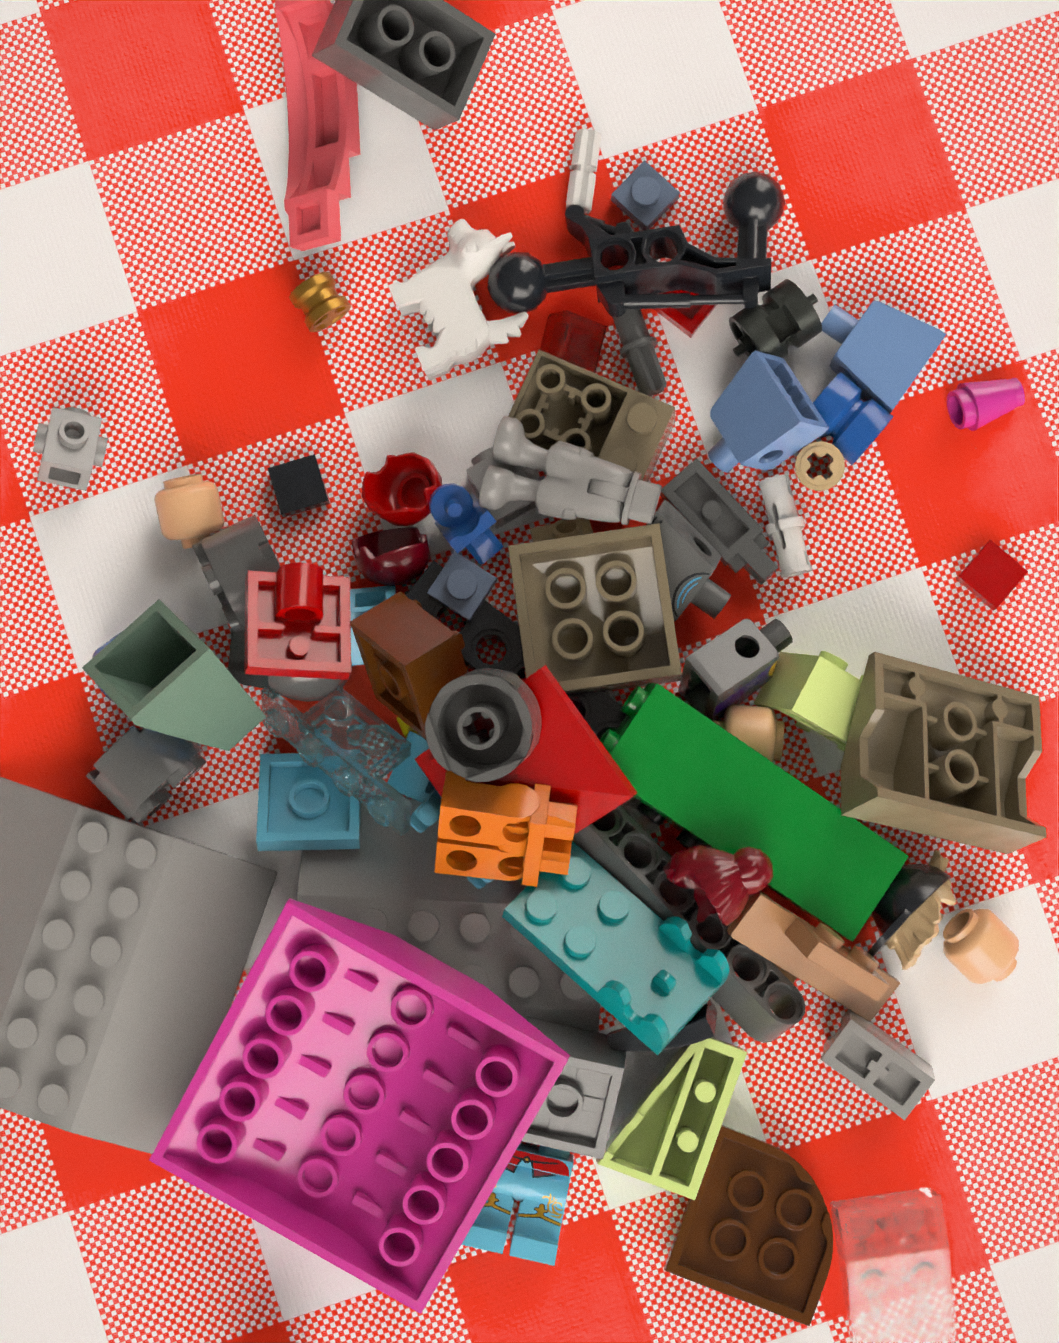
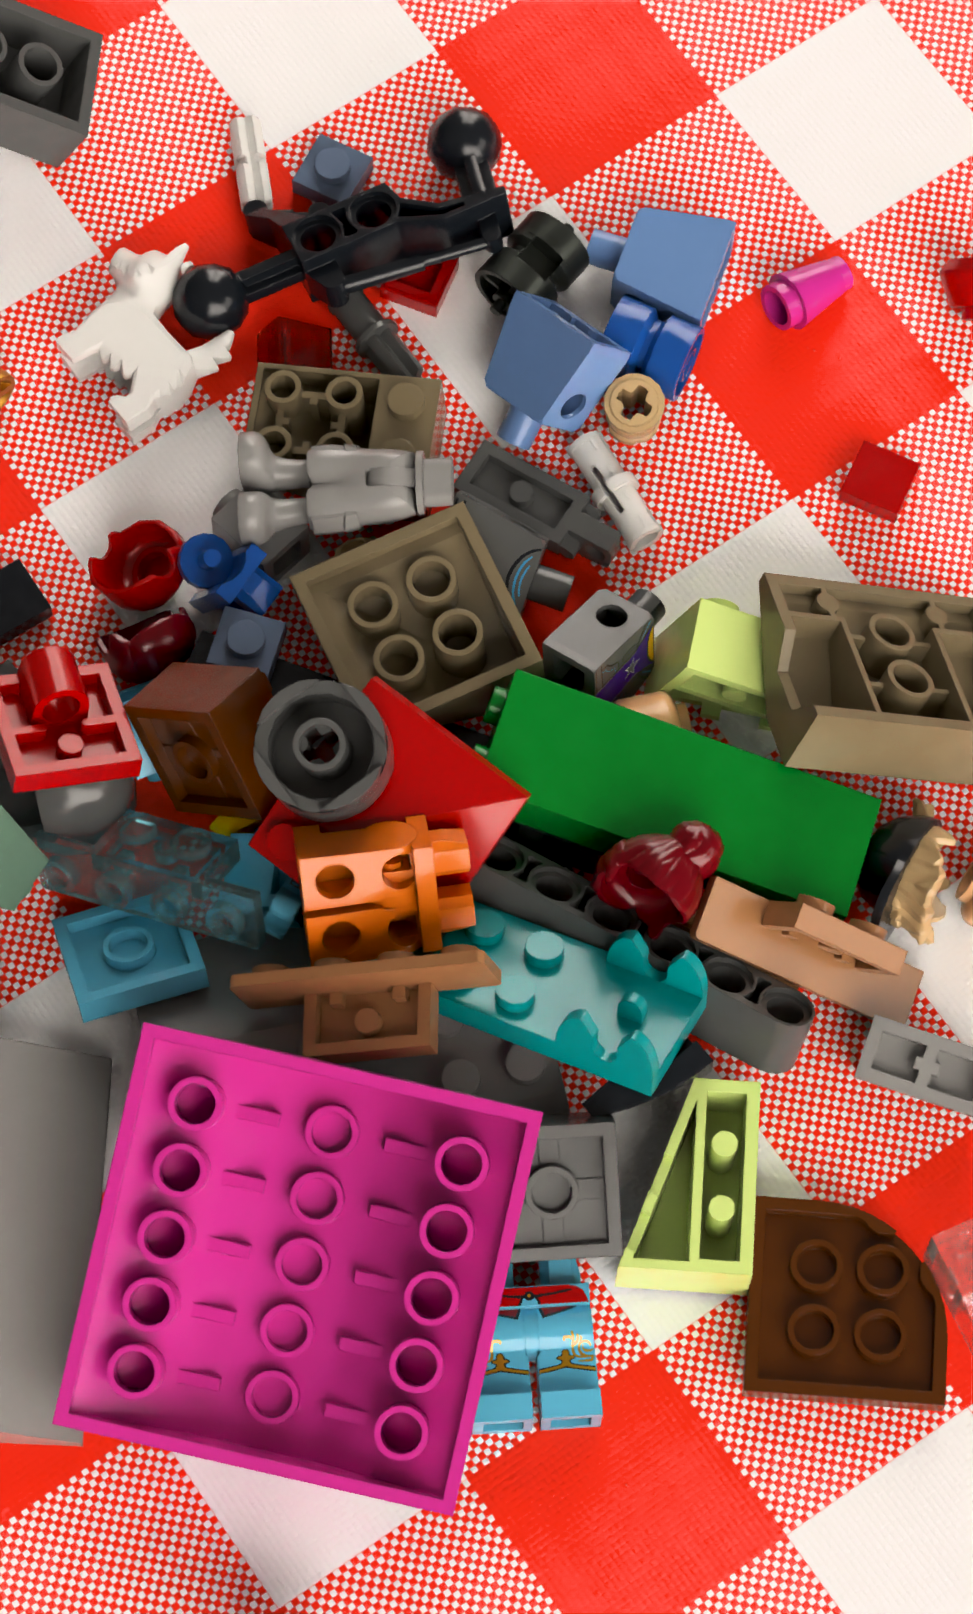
camera: 20 degrees left, 15 degrees down
(465, 924) = (368, 1006): none -> medium nougat bracket

